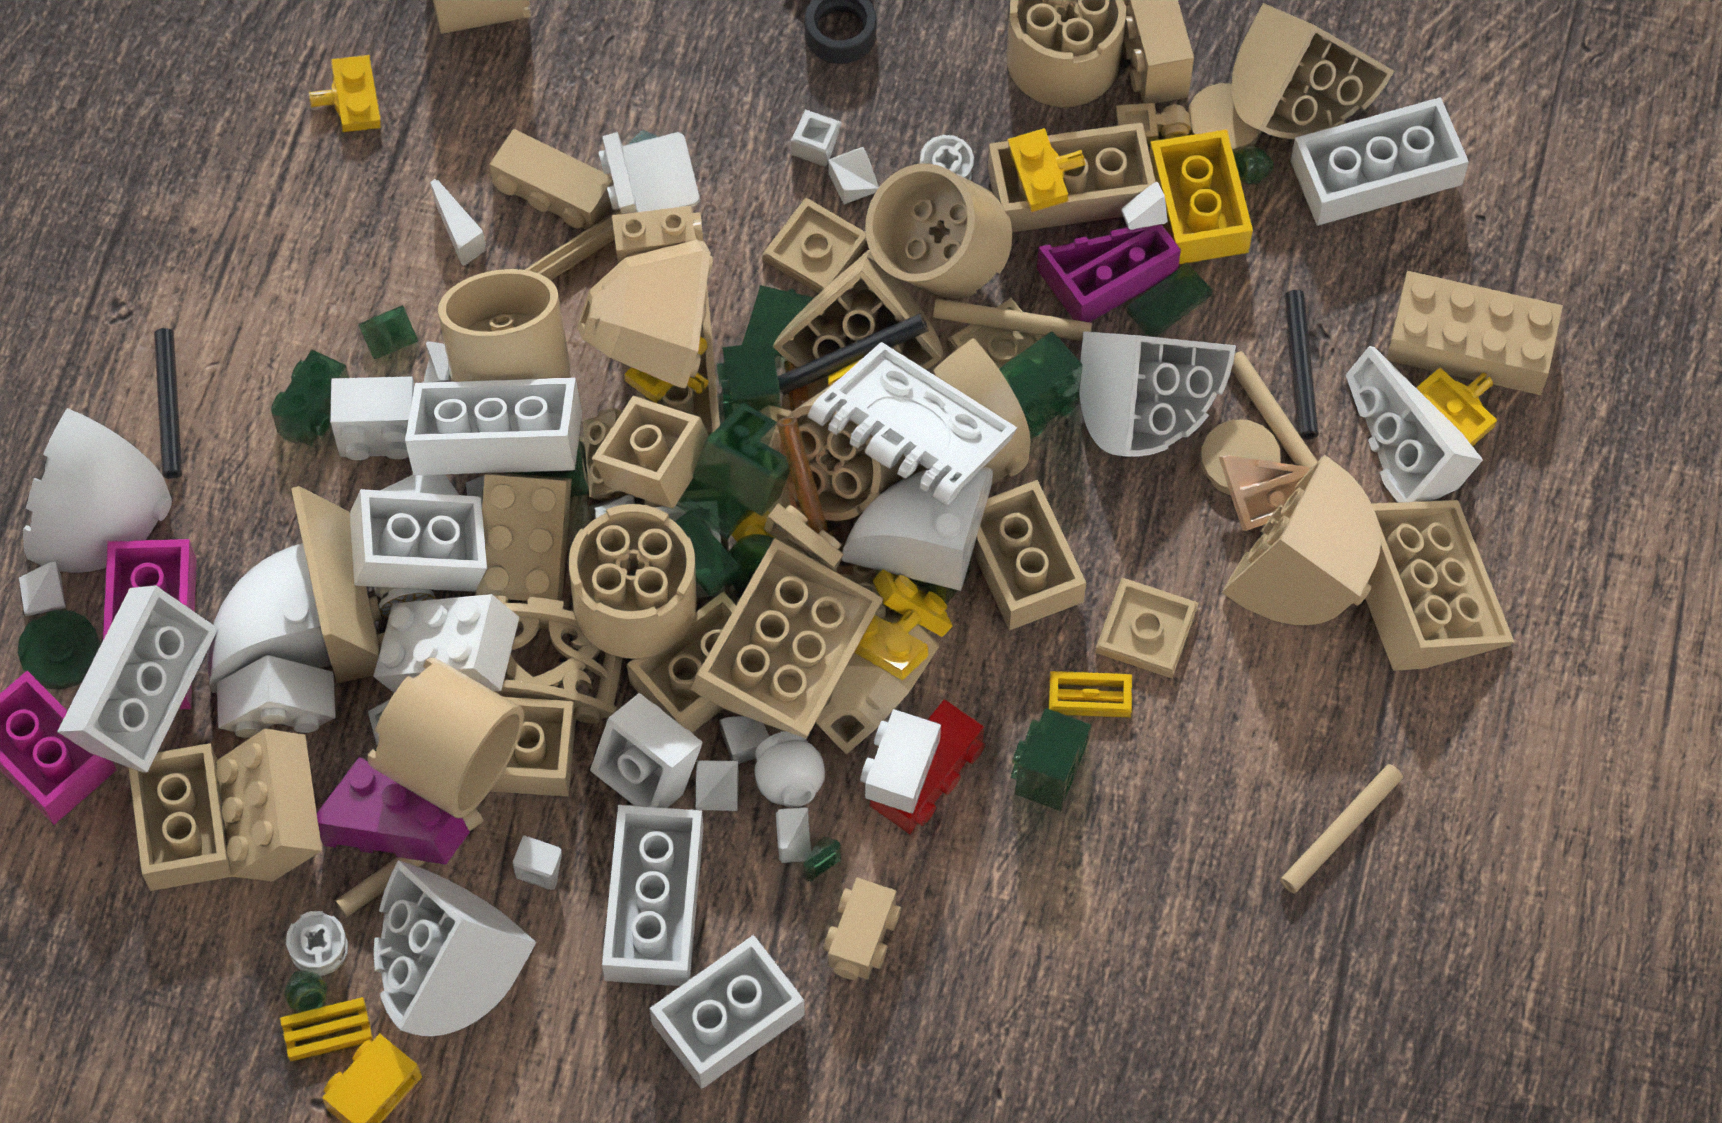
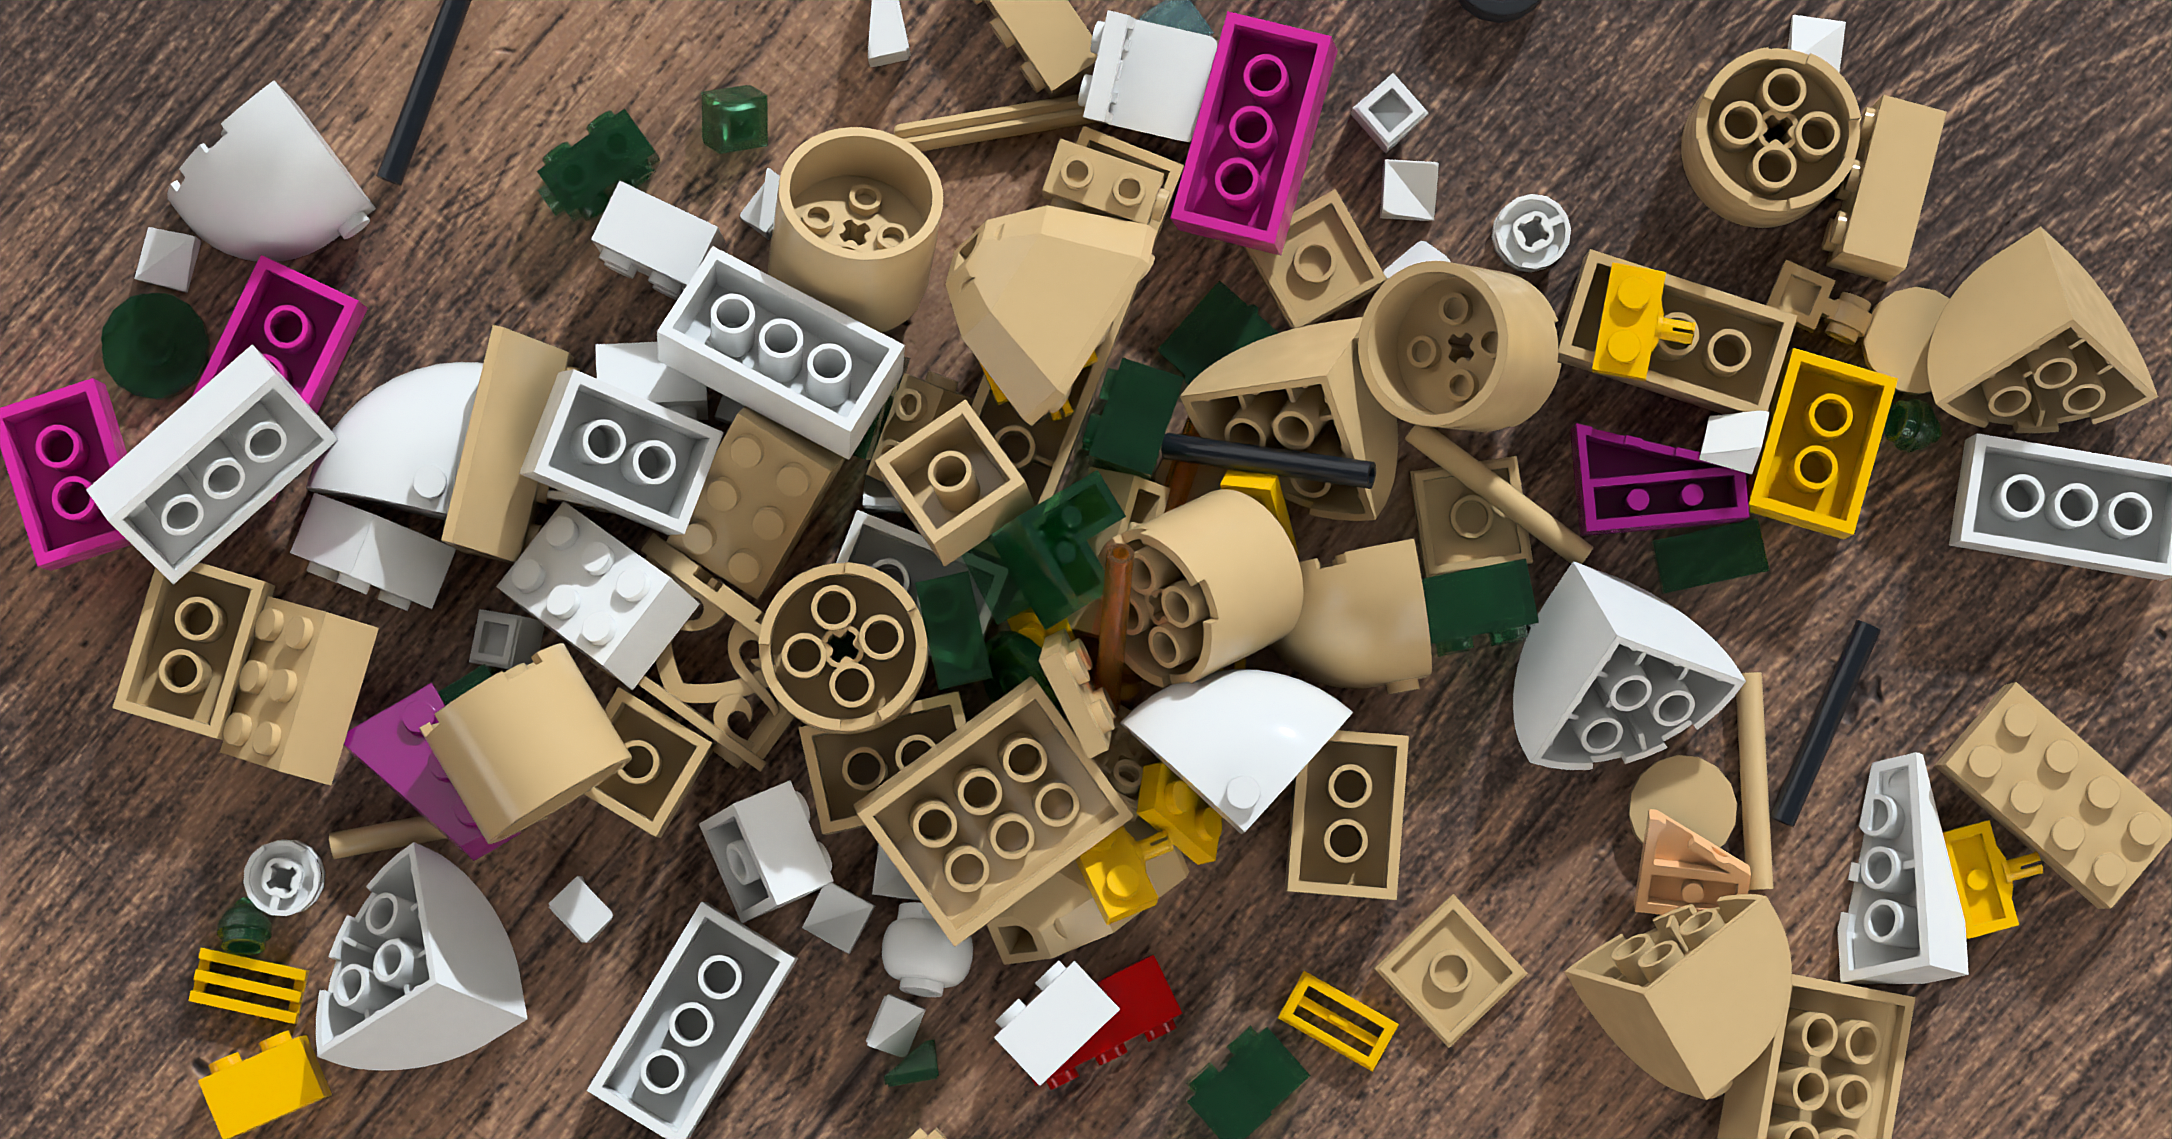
camera: 25 degrees right, 20 degrees up
(735, 181) = (1254, 133): none -> dark pink brick
(915, 416) = (1280, 626): white hinge -> none

